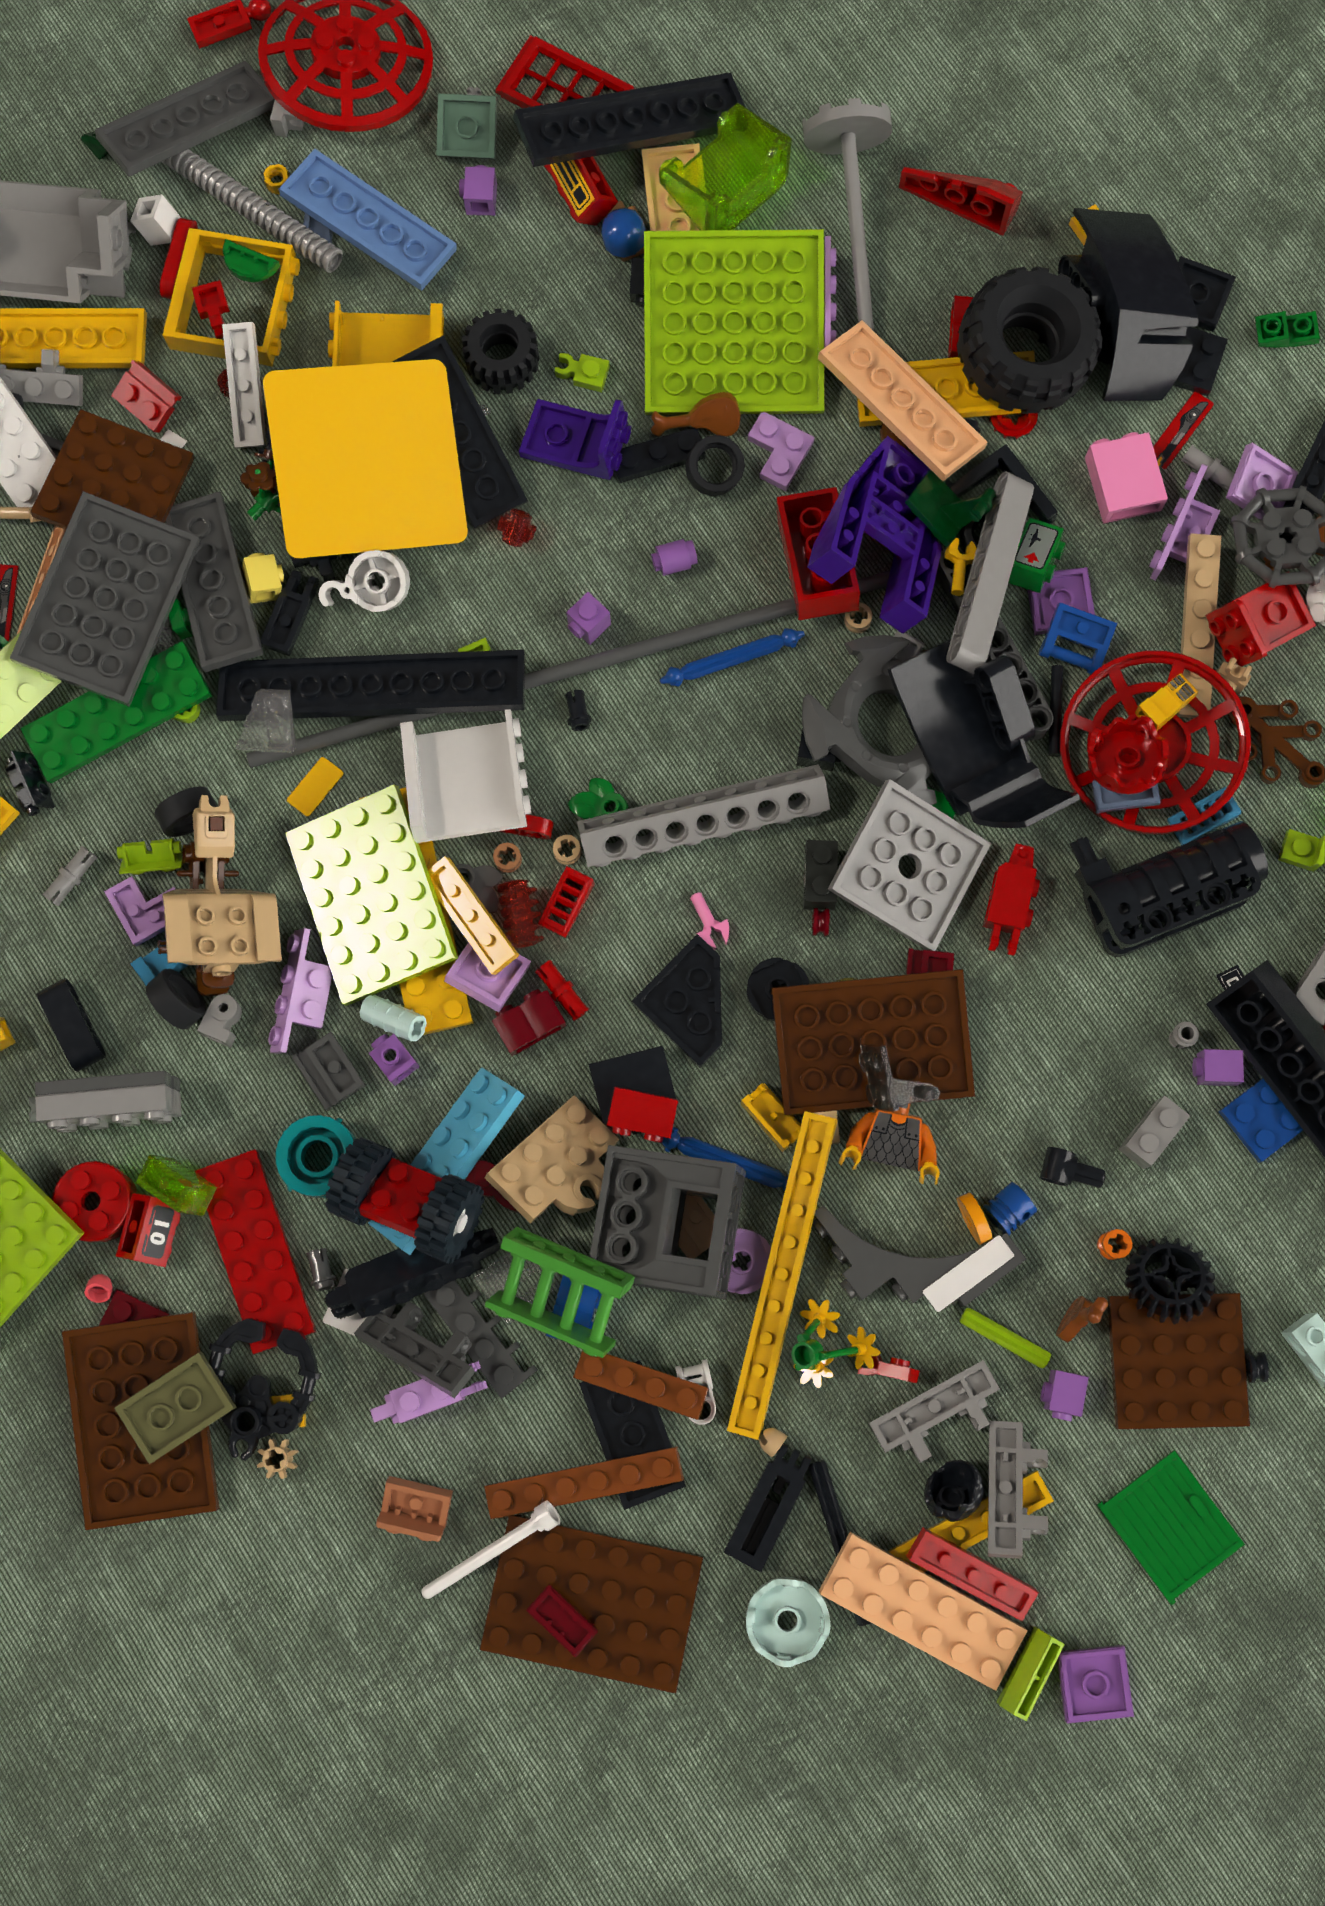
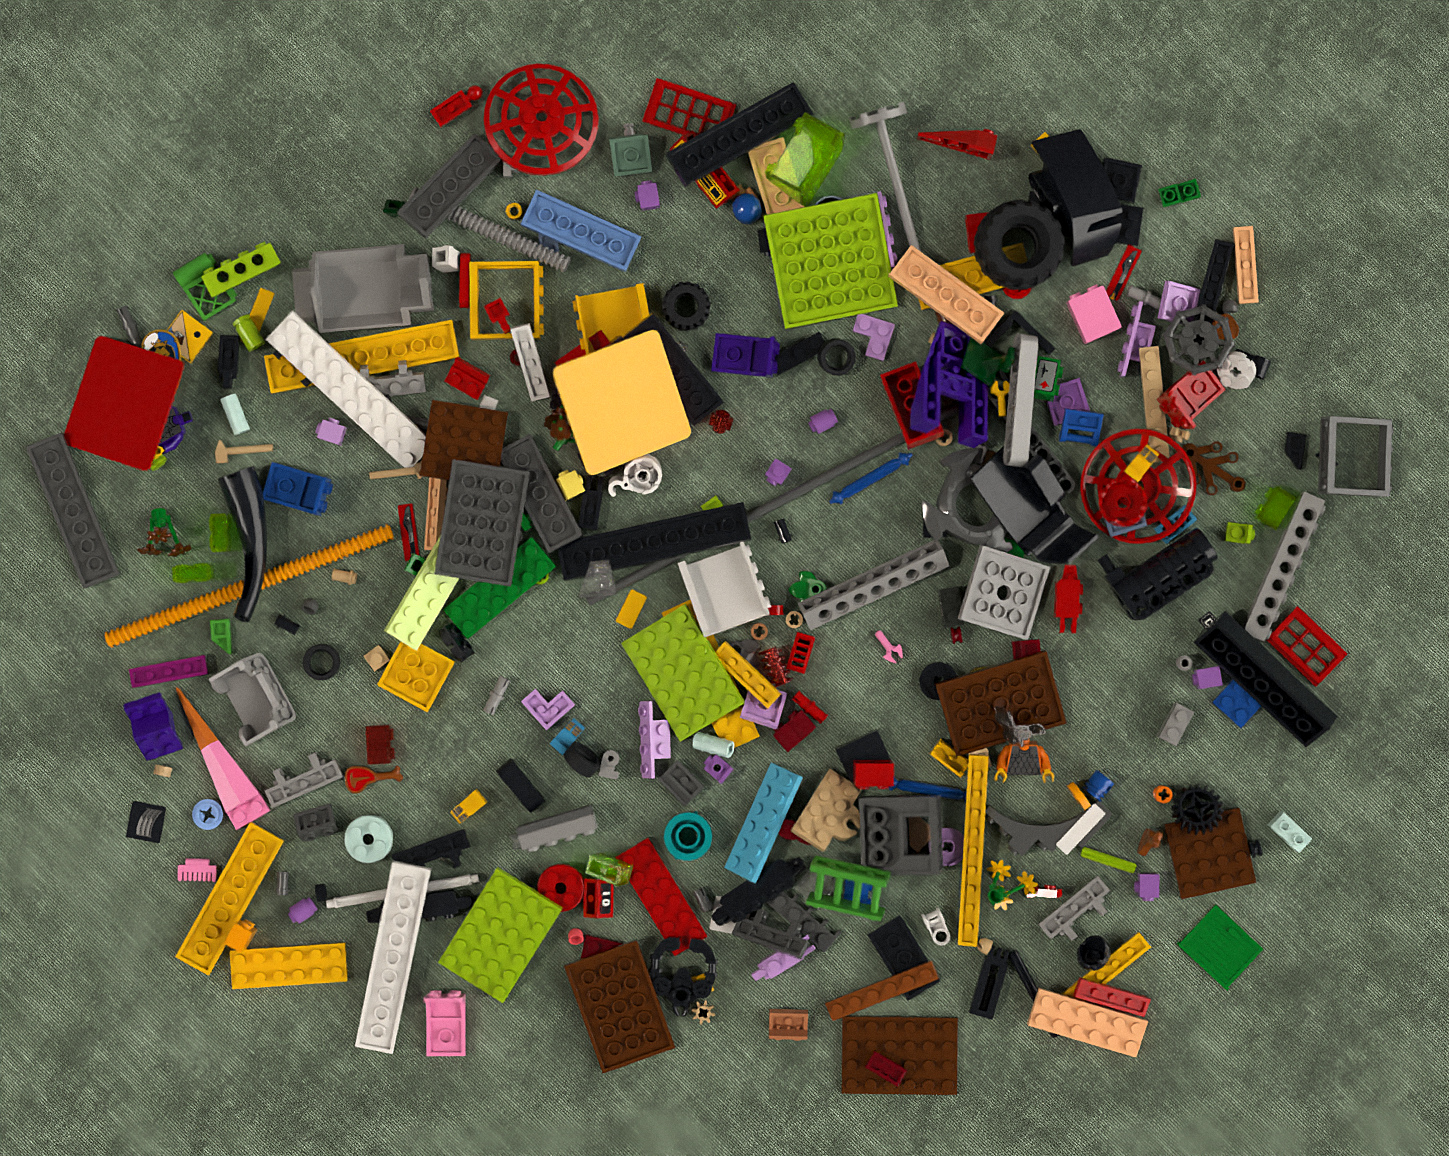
camera: 15 degrees left, 10 degrees up
(165, 856) = (550, 673): lime hinge -> none
(175, 1407) = (640, 996): olive plate -> none
(176, 811) = (560, 644): black tyre -> none
(215, 924) = (597, 709): tan piece -> none
(248, 264) = (513, 281): green plate -> none
(405, 1198) = (748, 853): black plate -> none
(543, 1518) = (864, 1014): white piece -> none
(587, 372) = (743, 306): lime plate -> none
(642, 1384) = (905, 929): dark orange plate -> none
(687, 1001) = (886, 698): black plate -> none
(715, 412) = (831, 322): dark orange piece -> none
(792, 1645) = (1016, 1056): light aqua plate -> none
(1006, 1516) = (1125, 961): light grey hinge -> none
(1030, 1673) = (1153, 1044): lime piece -> none
(1056, 702) = (1075, 472): black bar -> none
(1063, 1167) = (1126, 755): black axle -> none
(1095, 1684) = (1190, 1042): medium lavender tile -> none

